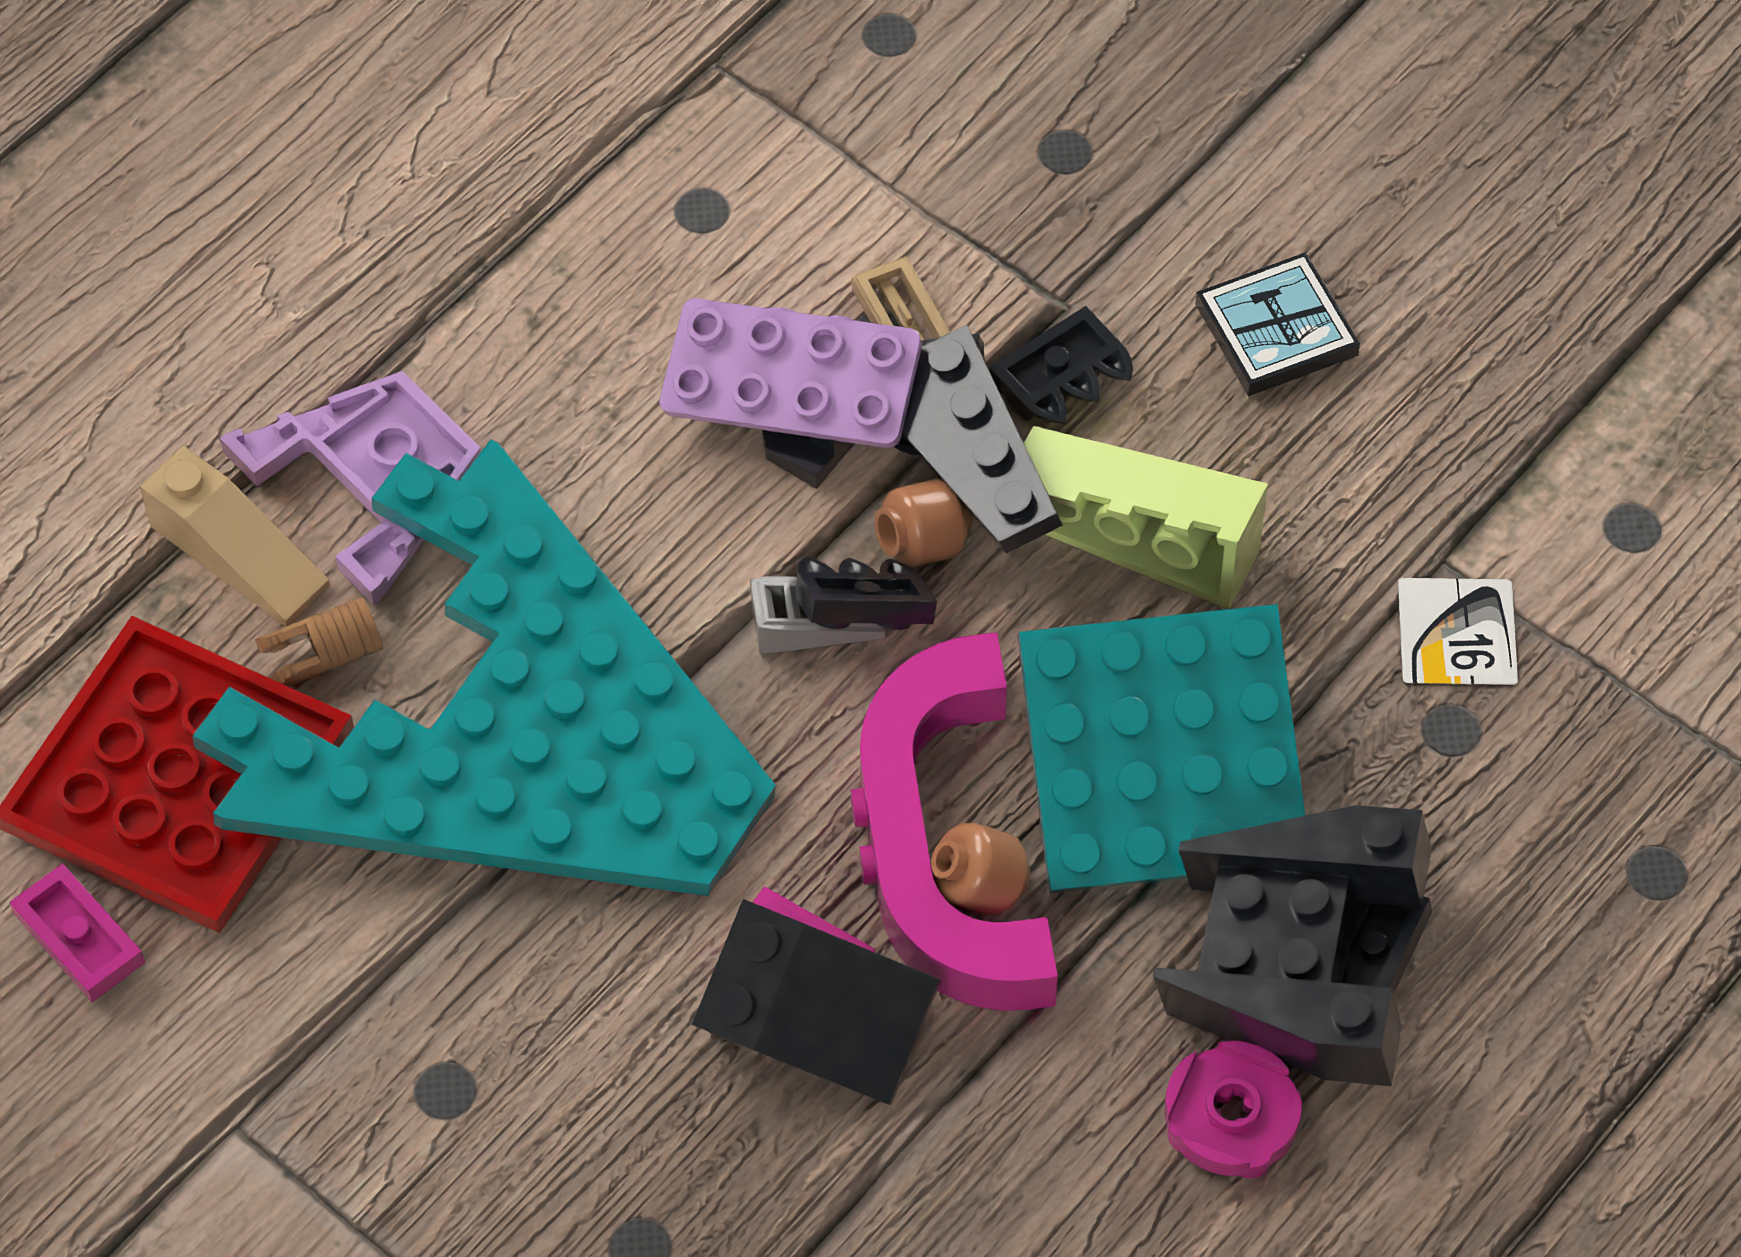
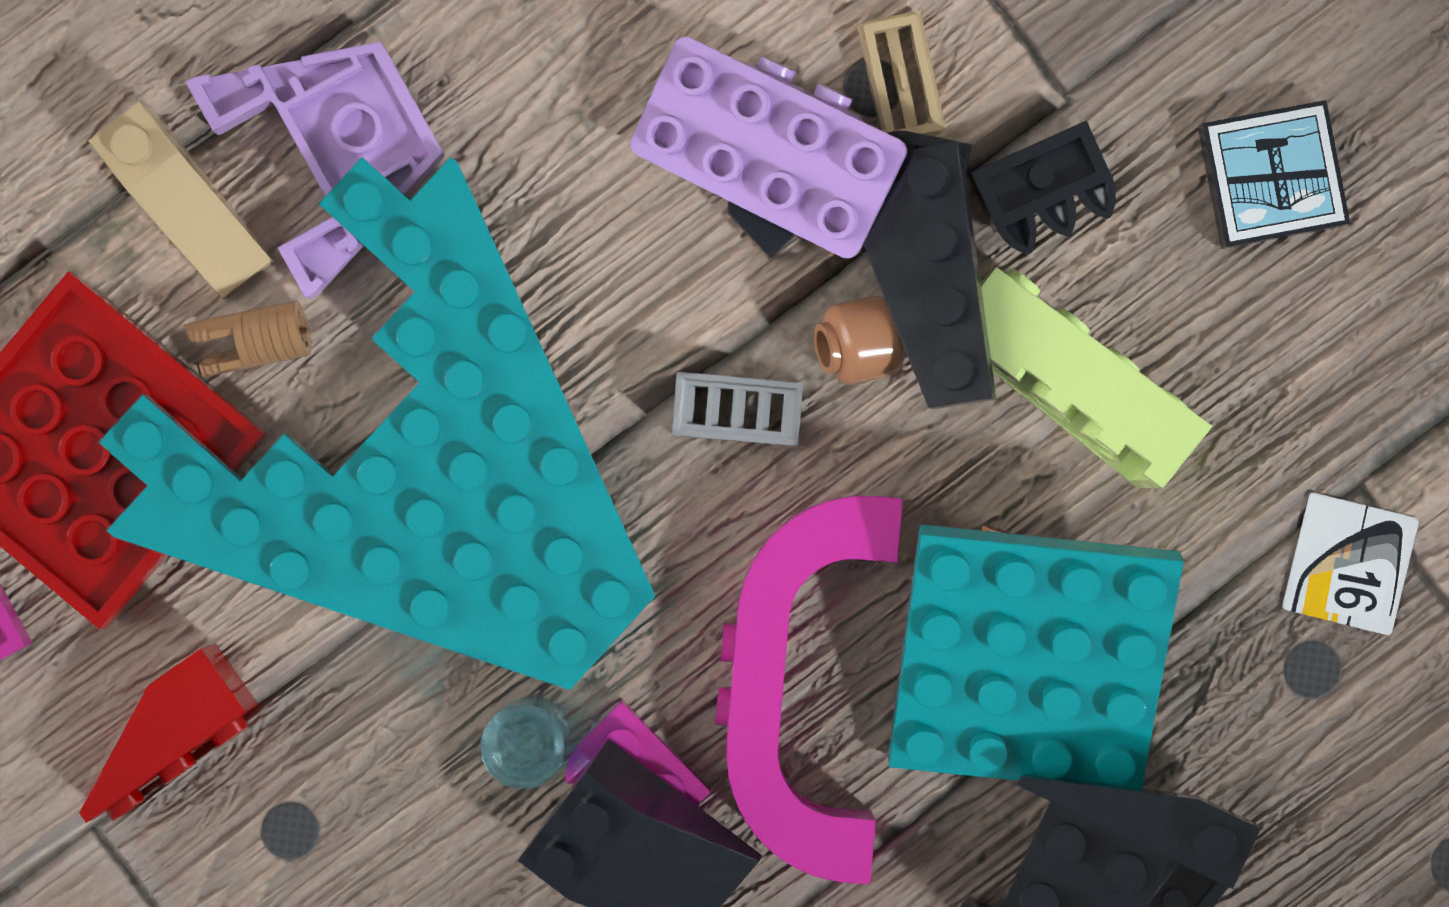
camera: 10 degrees right, 30 degrees up
(310, 991) = (173, 718): none -> red slope
(676, 928) = (526, 742): none -> clear light blue wheel
(861, 595) = (782, 418): black plate -> none
(980, 868) = (825, 744): nougat head -> none

